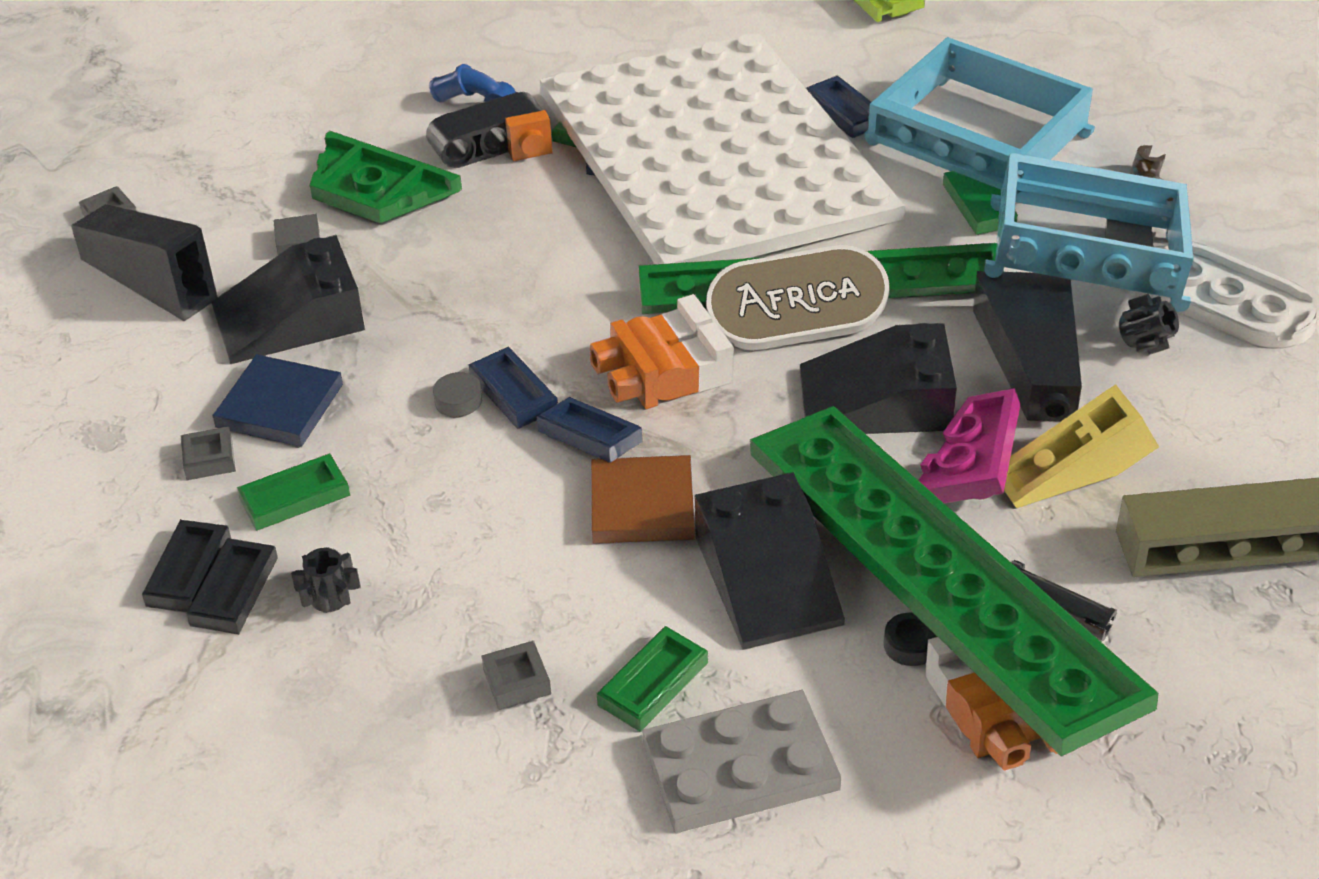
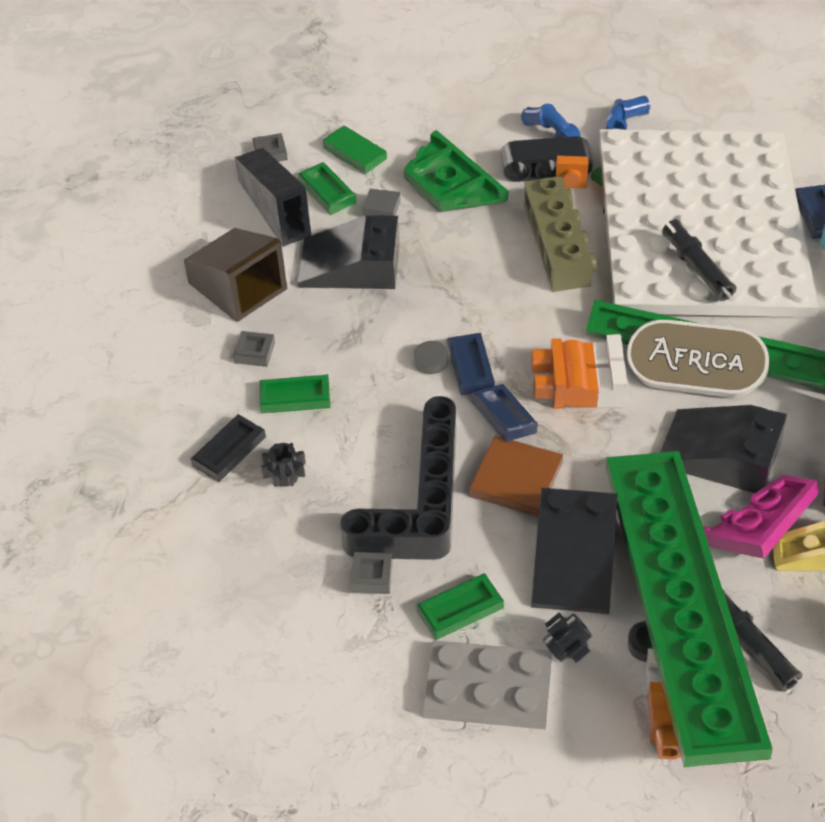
camera: 25 degrees right, 5 degrees up
(142, 361) = (238, 271): none -> dark brown slope
(184, 565) = (205, 422): black tile -> none
(223, 239) = (327, 188): none -> green tile
(227, 181) = (354, 149): none -> green tile
(278, 400) = (314, 324): dark blue tile -> none
(548, 208) = (558, 234): none -> olive brick
(557, 52) = (626, 109): none -> blue piece
(564, 590) = (422, 531): none -> black beam
(729, 178) = (691, 250): none -> black pin
(816, 664) = (567, 637): none -> black gear

